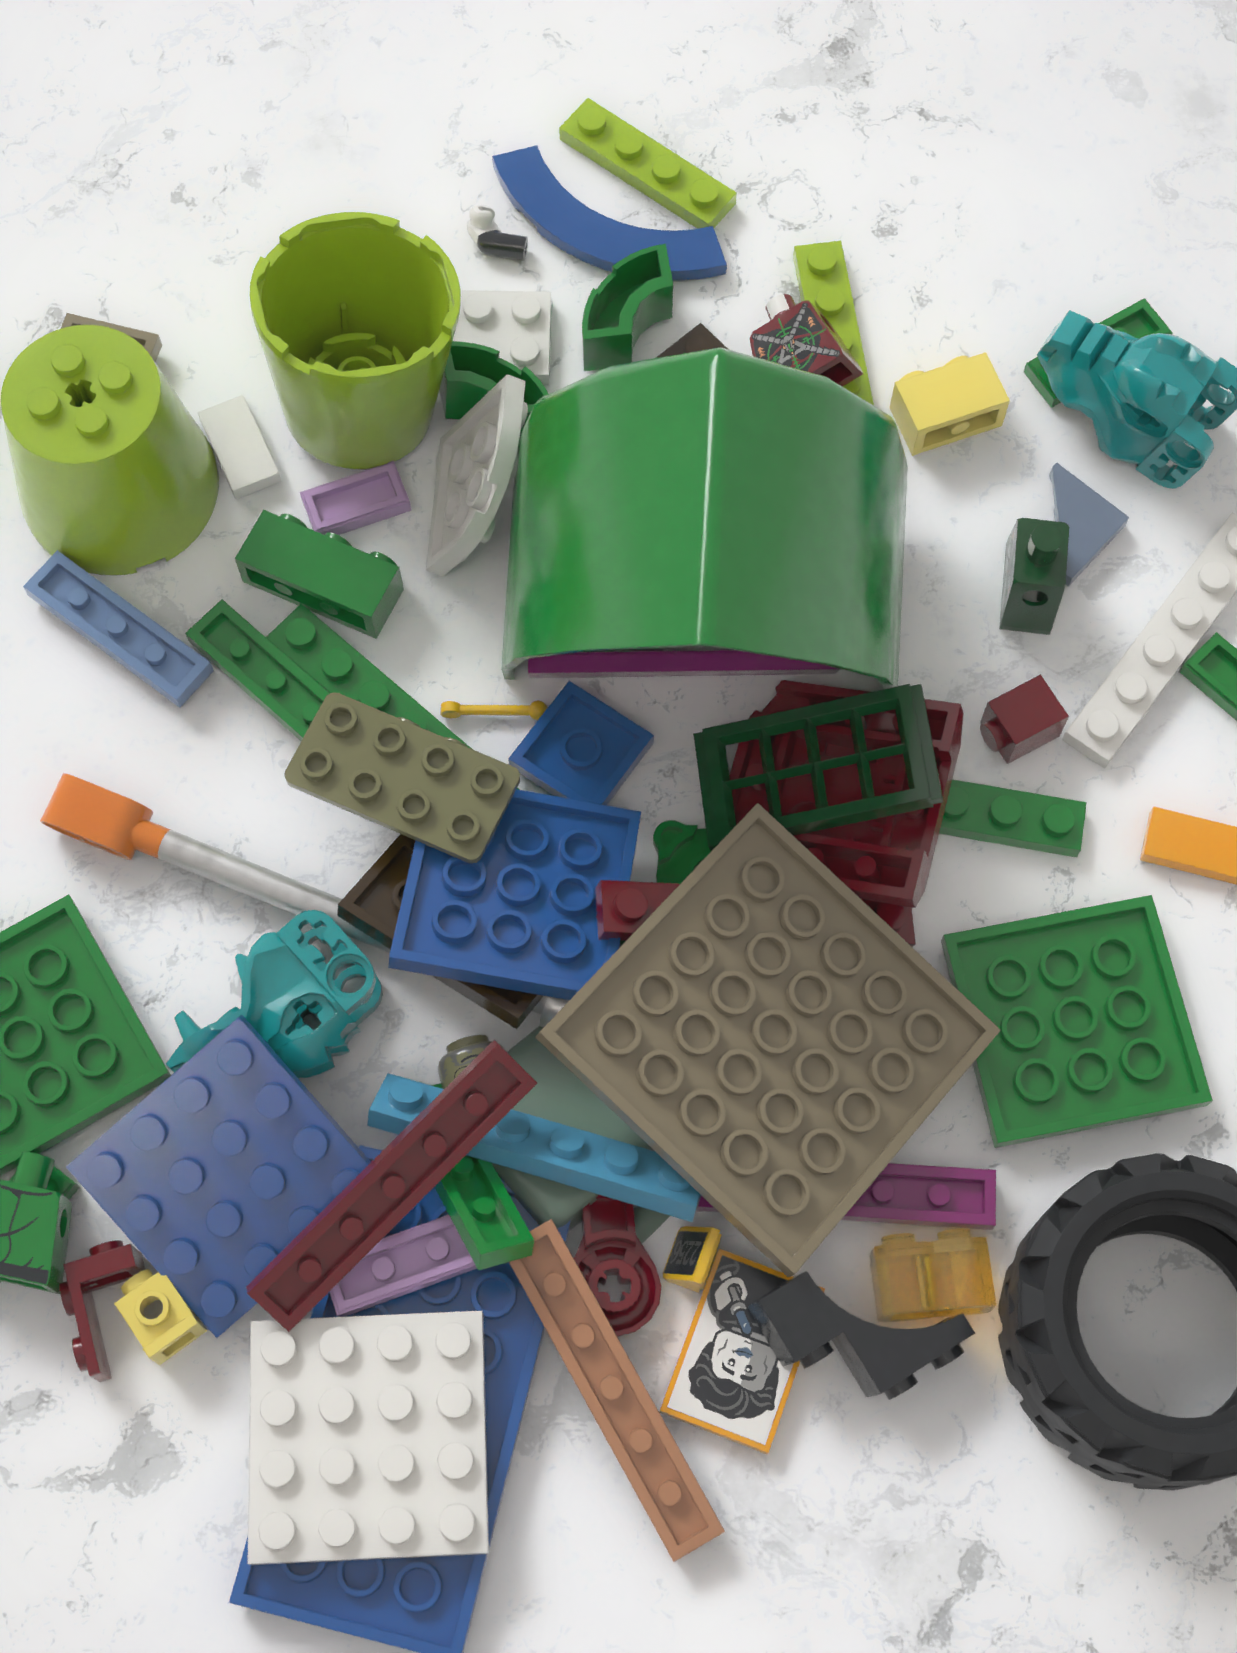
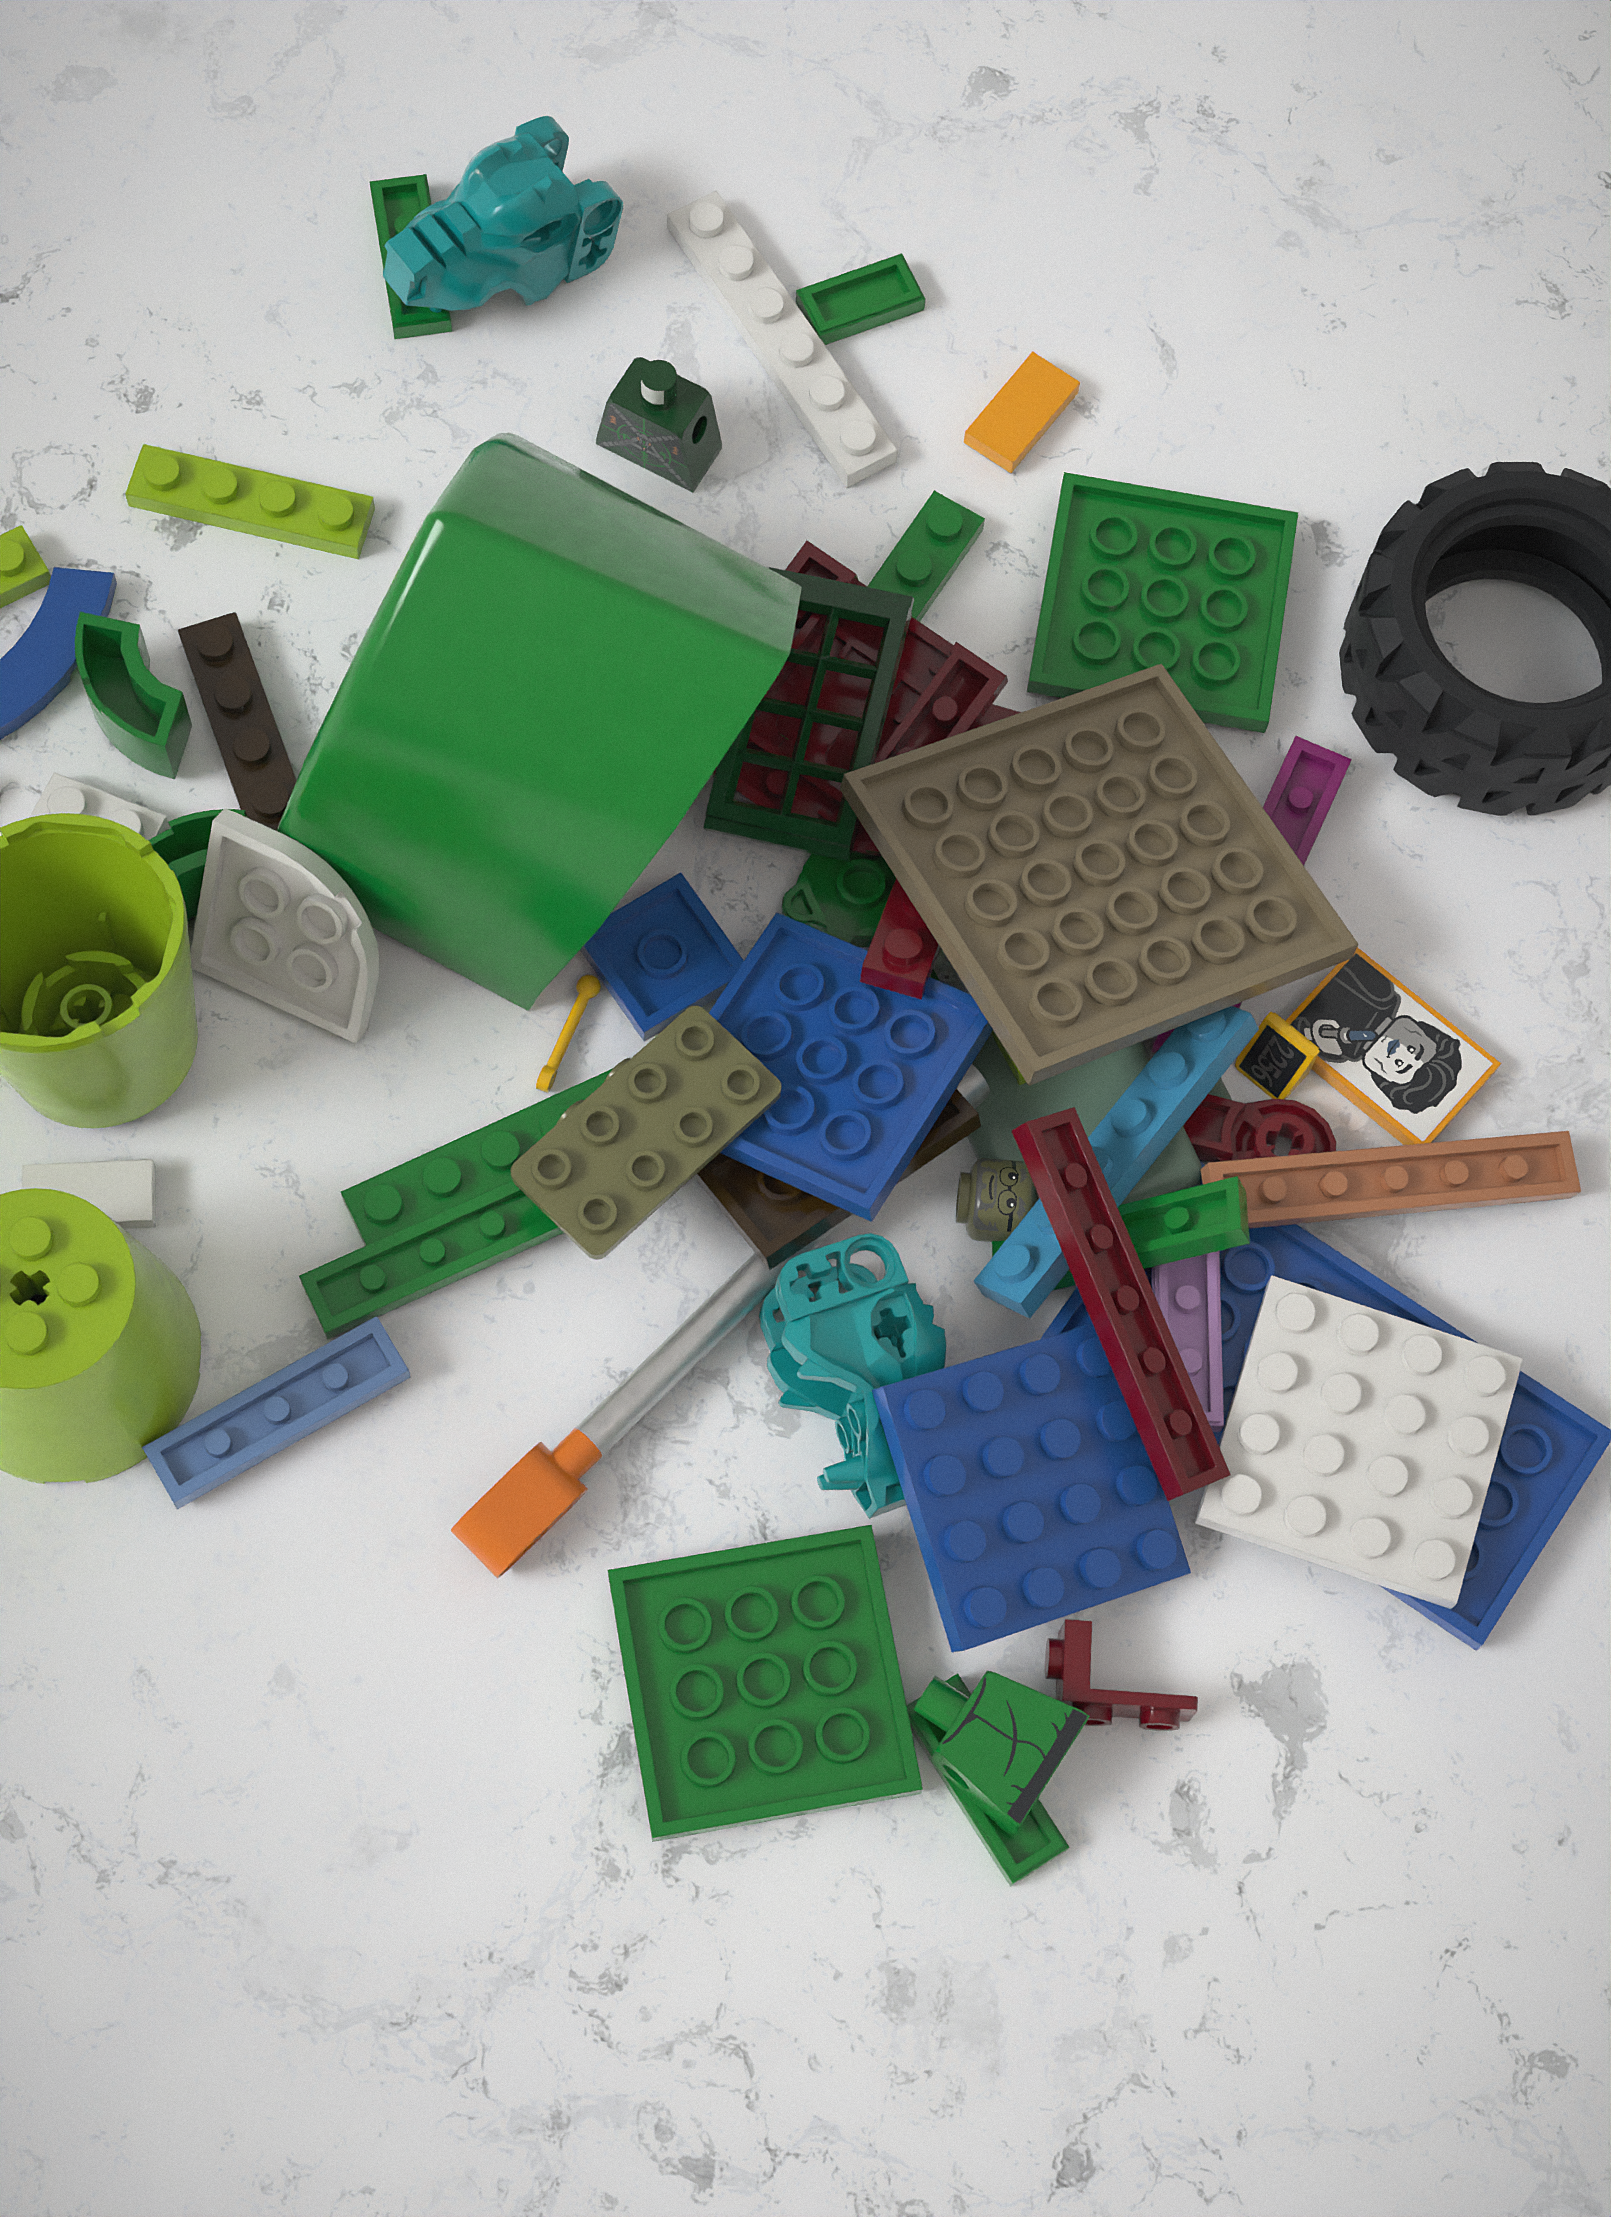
camera: 75 degrees left, 0 degrees up
(168, 1332) = (1128, 1646): light yellow brick -> none
(320, 572) = (312, 1154): green brick -> none
(356, 500) = (227, 1090): lavender tile -> none
(802, 1321) = (1399, 967): black arch -> none
(803, 340) = (282, 539): torso -> none
(931, 1277) = (1381, 840): clear yellow brick -> none
(948, 403) = (408, 421): light yellow brick -> none
(1022, 719) = (819, 505): dark red brick -> none
(1090, 518) = (595, 353): sand blue tile -> none

